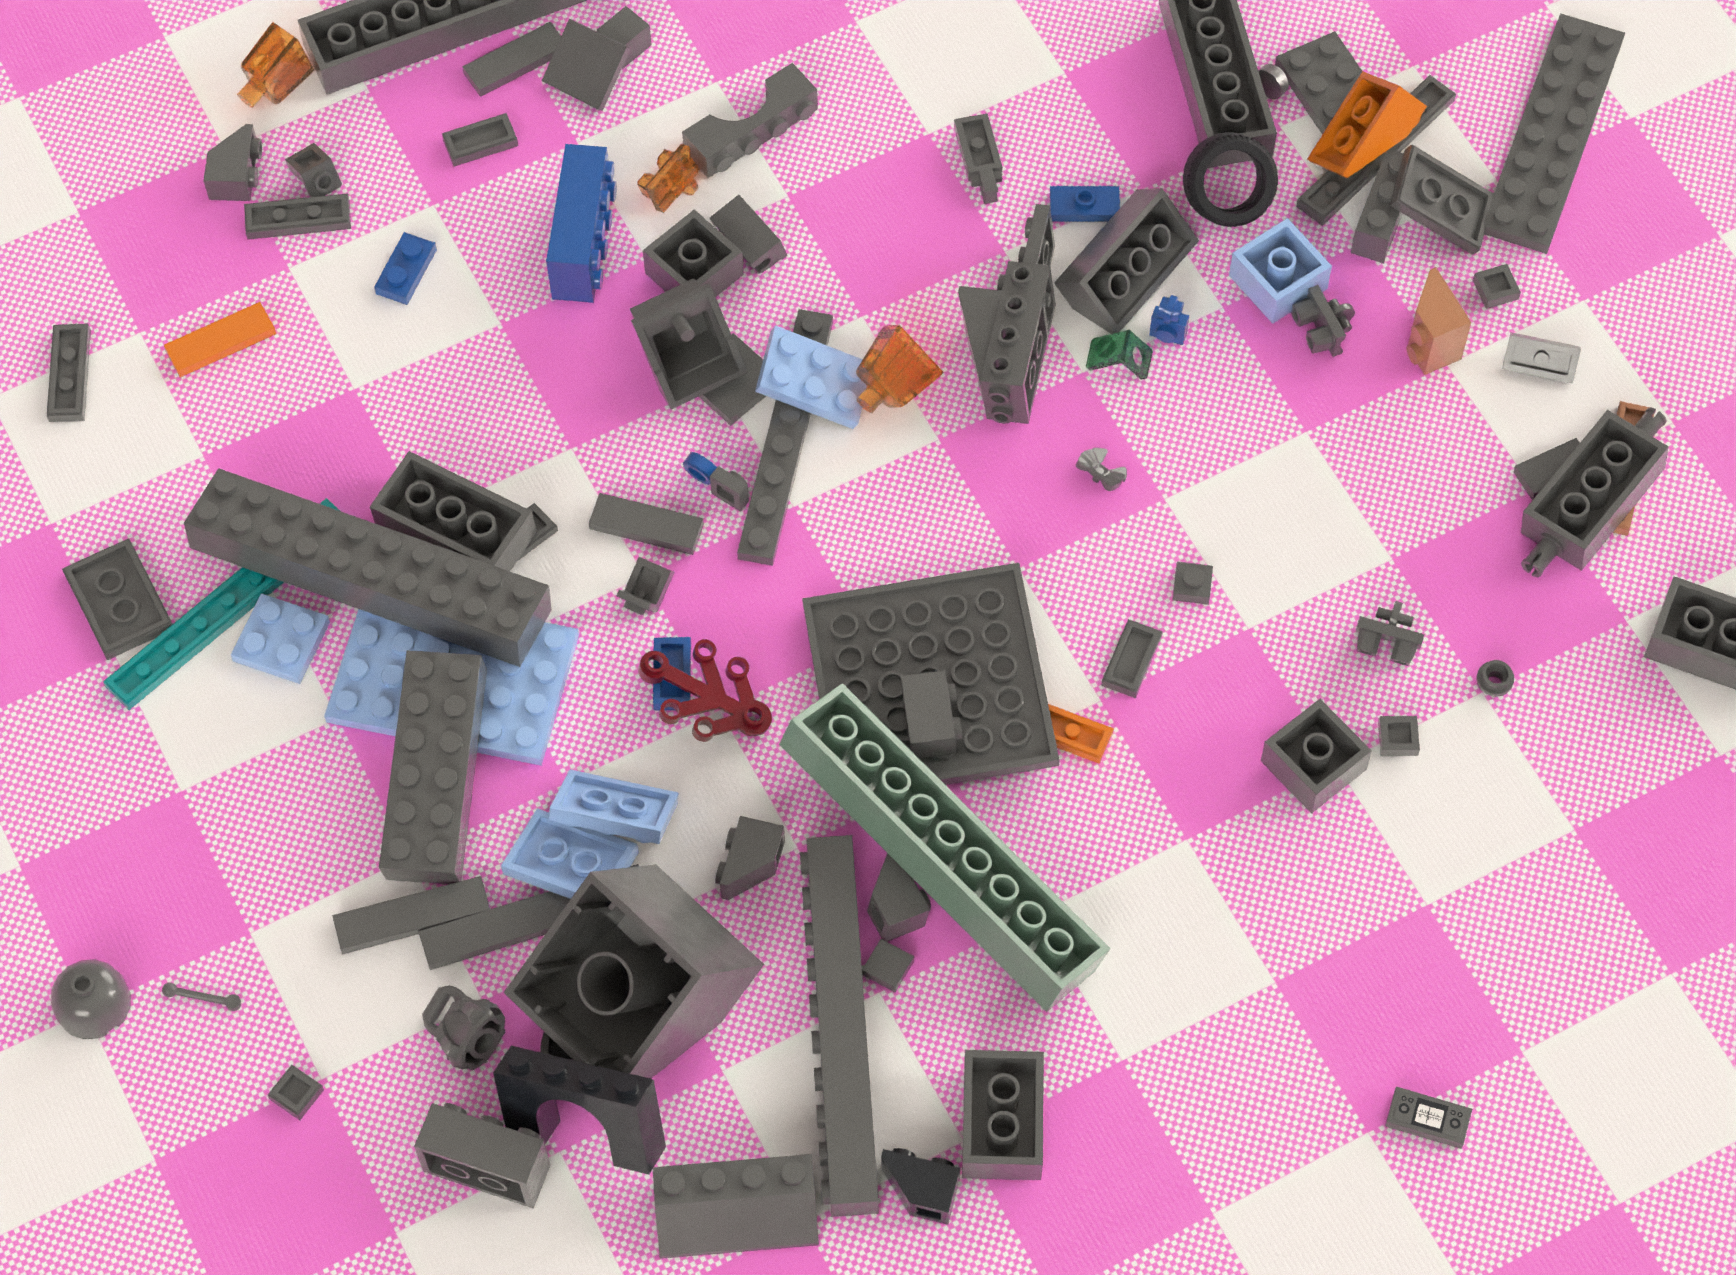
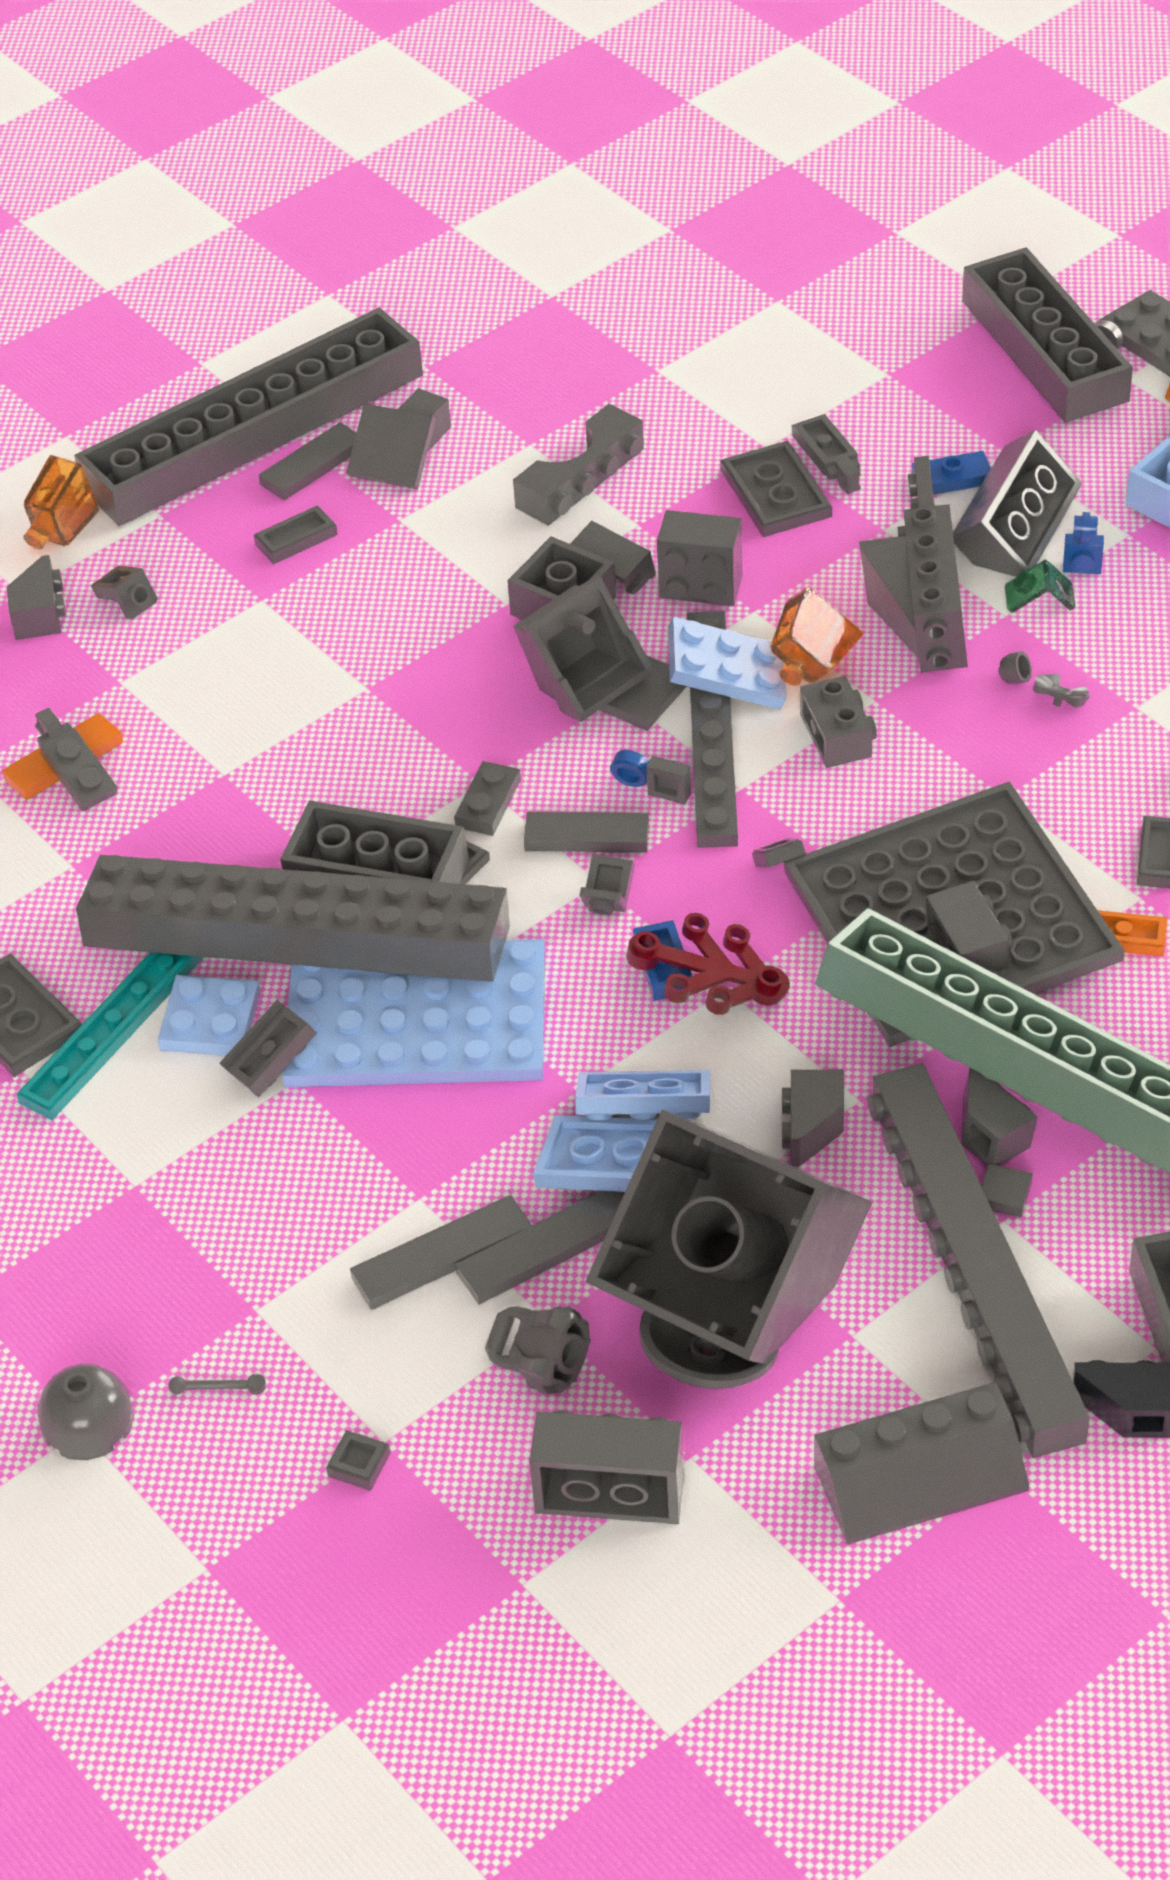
camera: 10 degrees left, 15 degrees down
(225, 352) = (73, 761): none -> dark grey hinge
(297, 216) = (117, 634): dark grey tile -> none
(316, 689) = (268, 1048): none -> dark grey plate
(405, 268) = (249, 657): blue plate -> none
(433, 767) = (426, 1094): dark grey brick -> none
(571, 468) = (487, 798): none -> dark grey plate
(581, 223) = (432, 575): blue brick -> none
(620, 1101) = (761, 1353): black arch -> none
(674, 177) = (511, 527): clear orange hips -> none
(801, 586) = (778, 852): none -> dark grey tile
(822, 259) = (699, 557): none -> dark grey brick
(893, 459) = (837, 721): none -> dark grey brick
(921, 184) = (775, 488): none -> dark grey tile
(1069, 430) = (1015, 668): none -> dark grey hinge
(1264, 189) = (1132, 401): black tyre -> none

